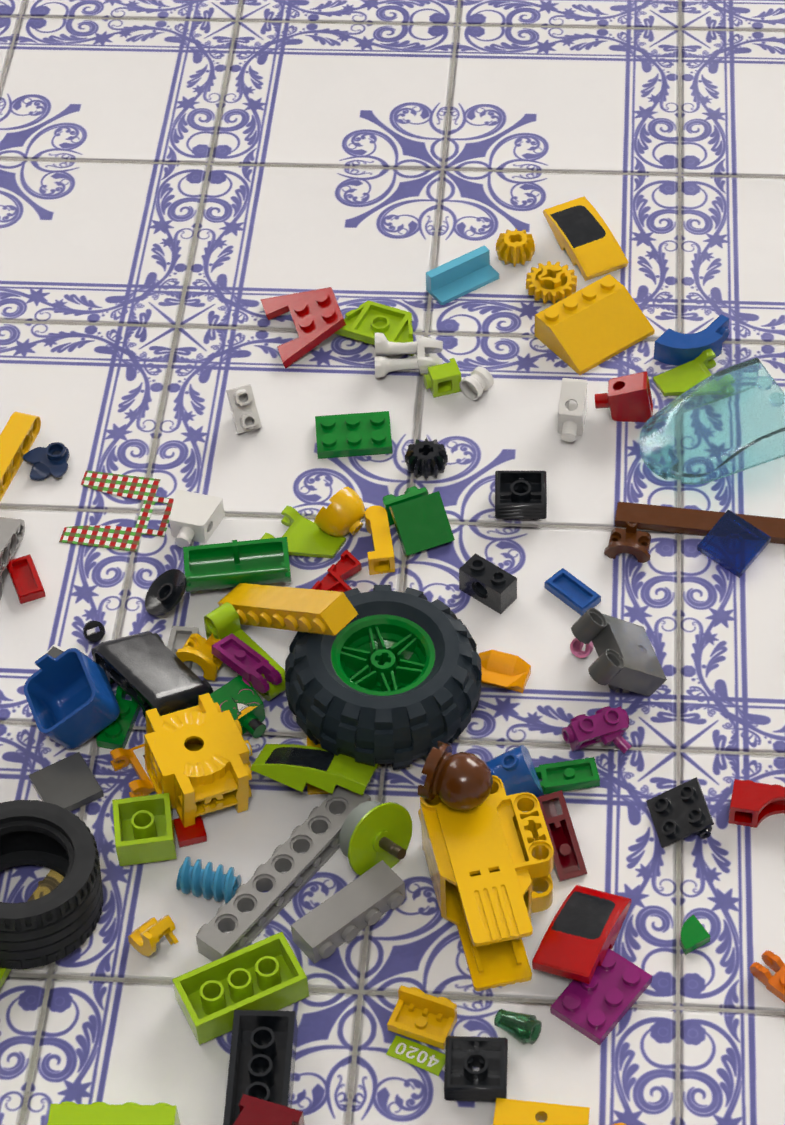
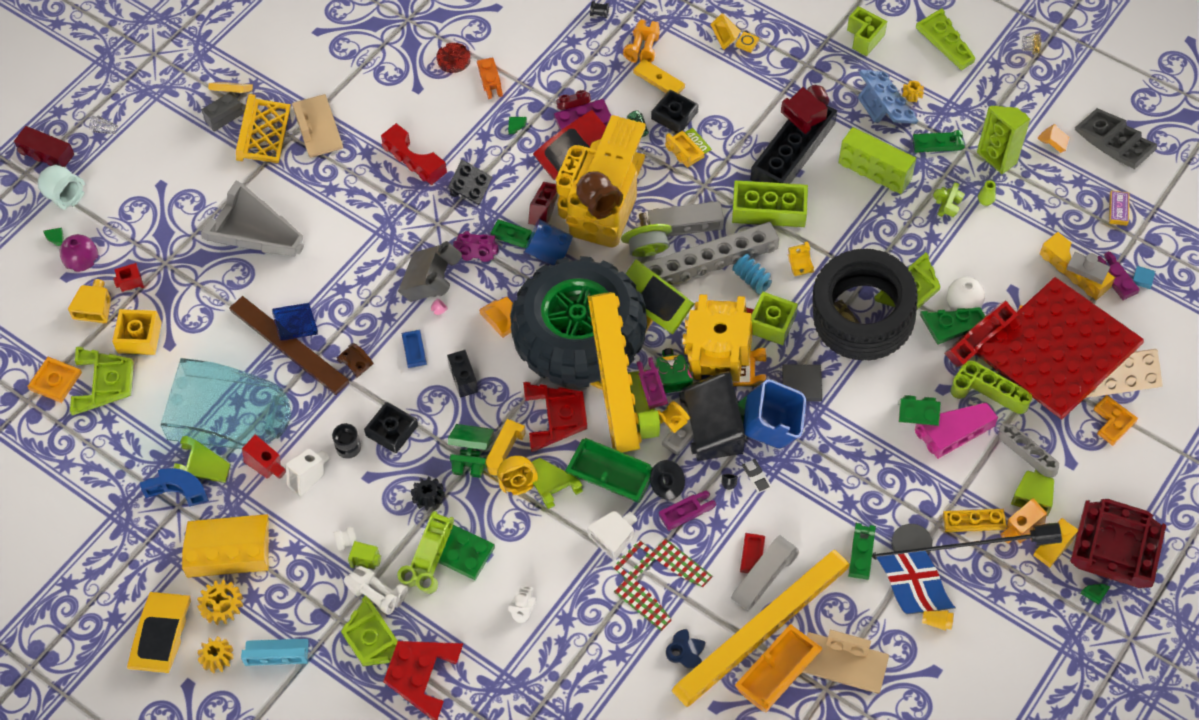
camera: 150 degrees left, 10 degrees up
(125, 580) = (686, 510): none -> magenta hinge
(374, 392) = (428, 553): none -> lime piece
(556, 456) = (346, 440): none -> black wheel
(641, 1008) = (570, 101): none -> dark red plate

